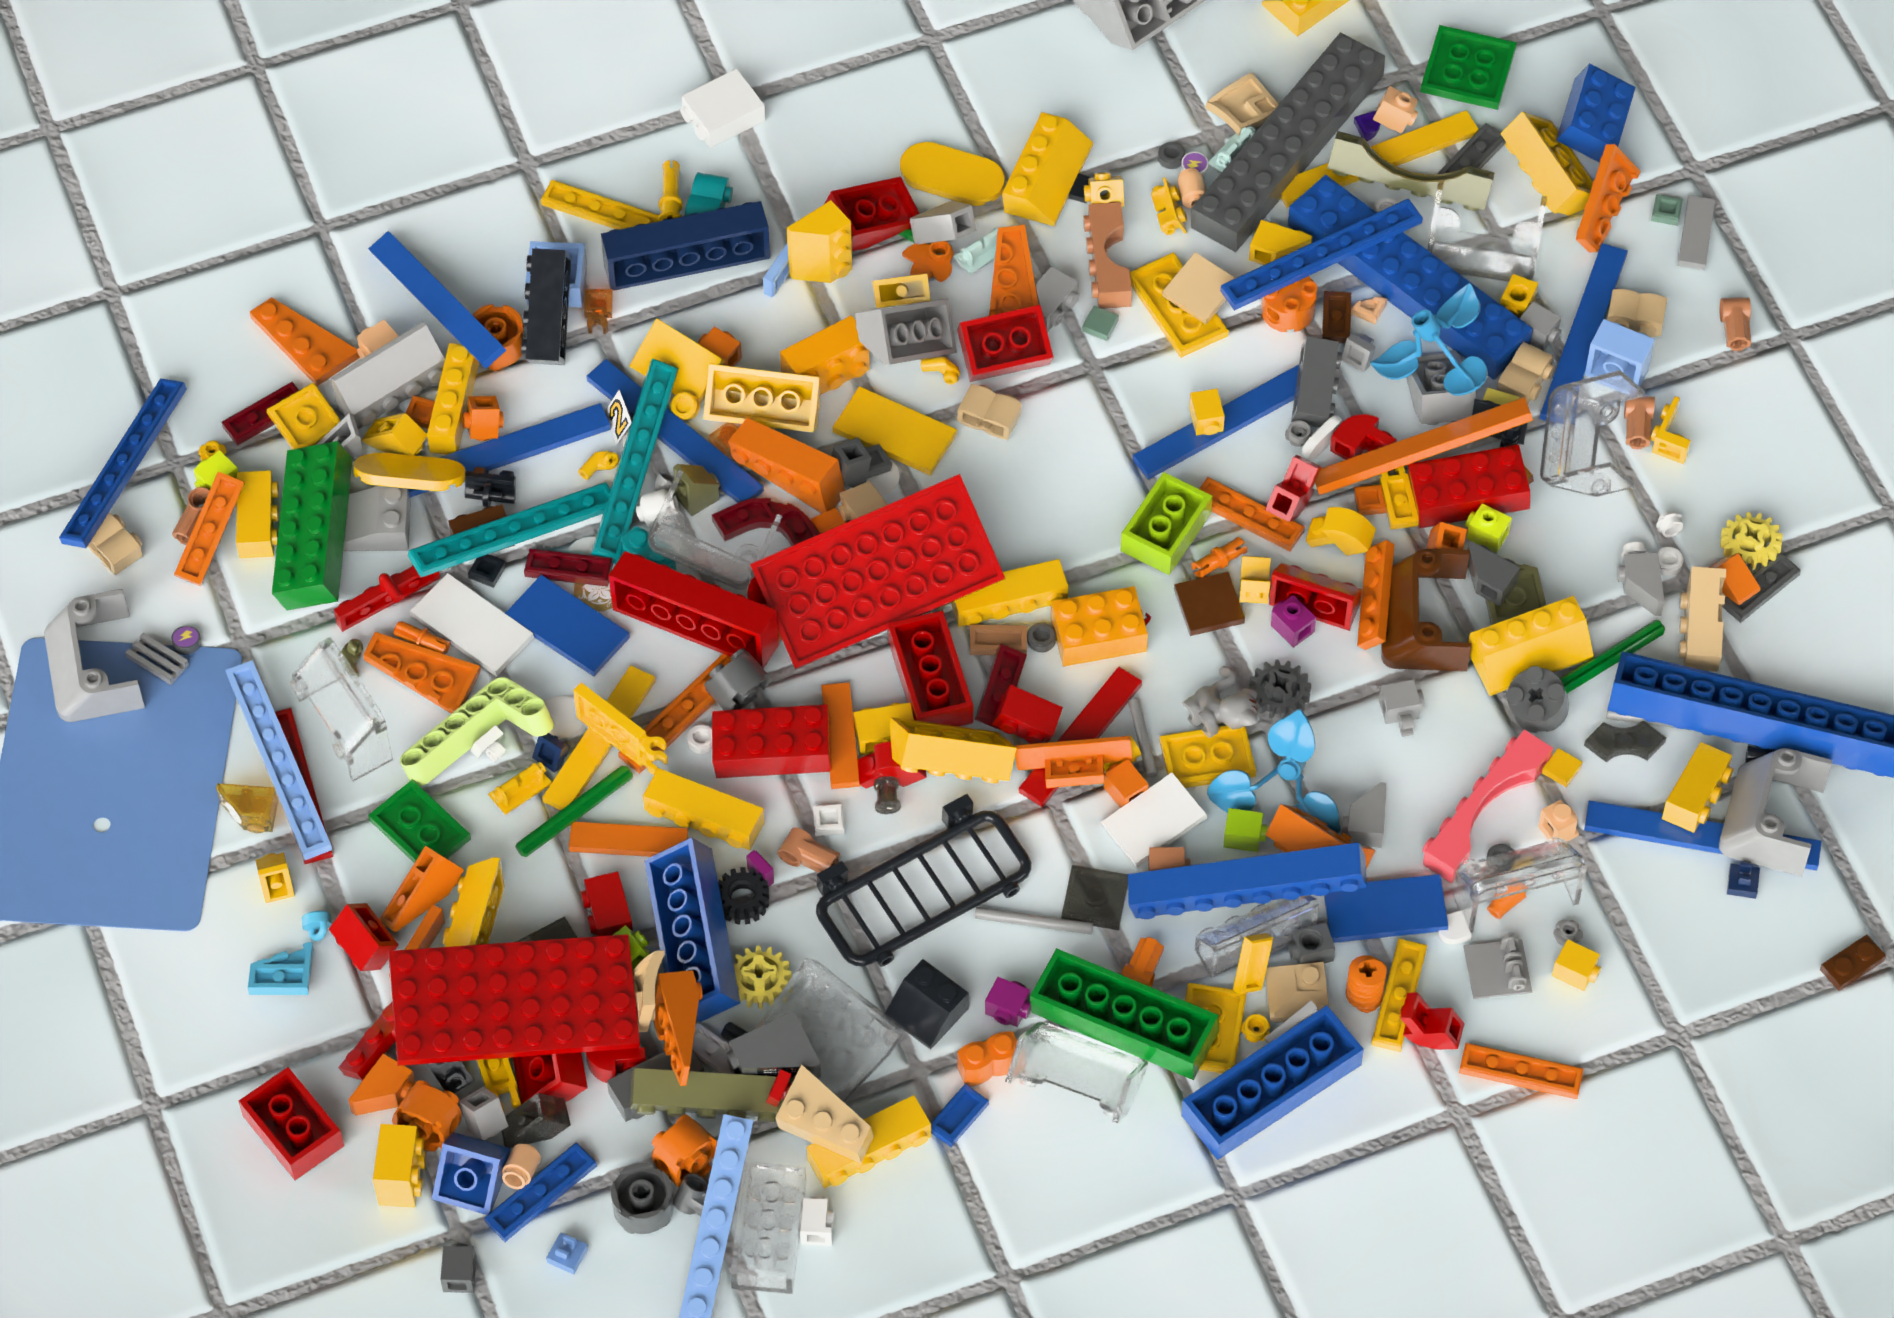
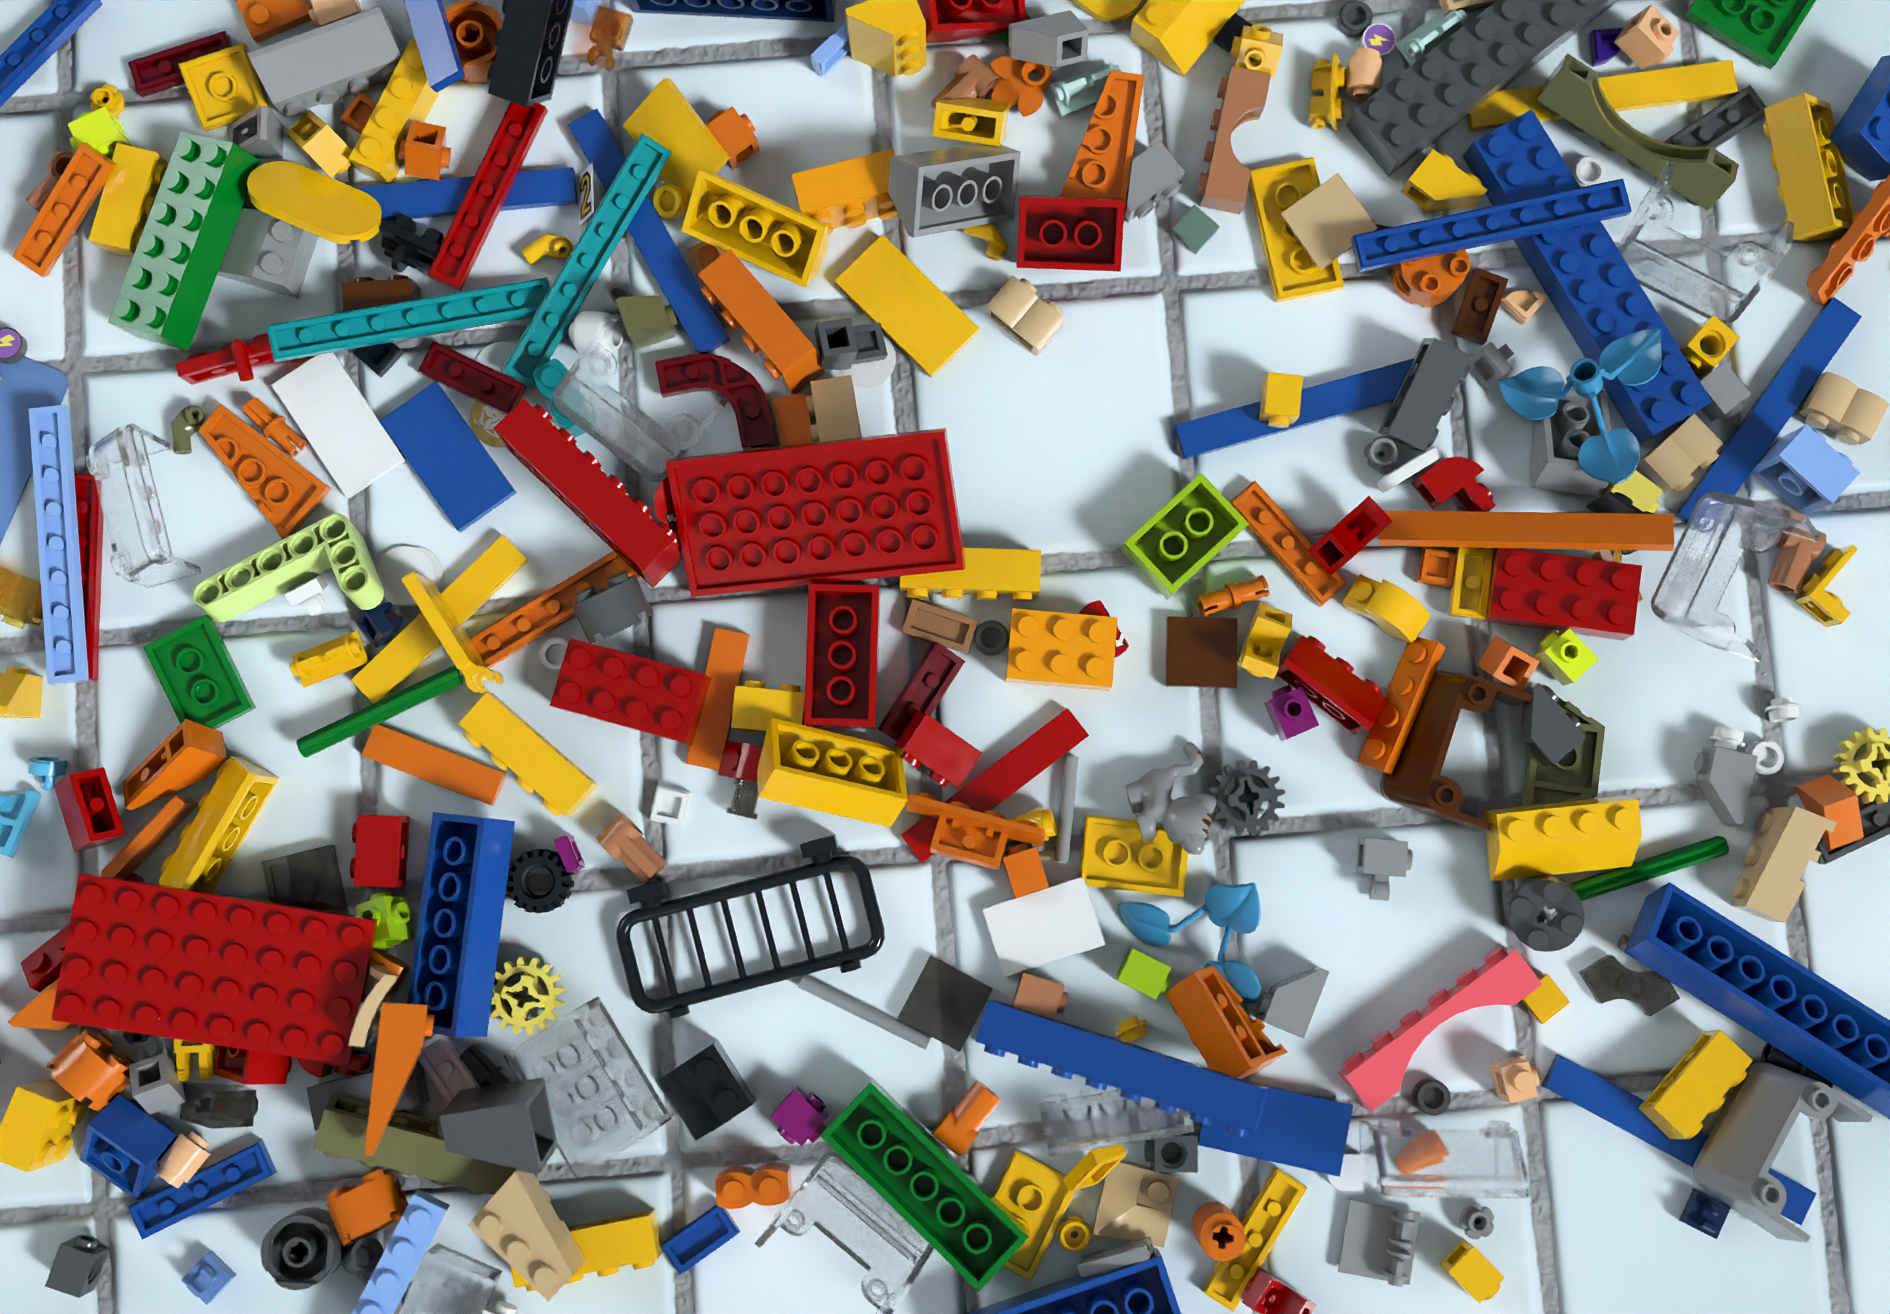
camera: 15 degrees right, 25 degrees up
(539, 435) = (486, 194): none -> red tile
(780, 1088) = (487, 1181): red plate -> none
(890, 265) = (971, 80): none -> nougat piece

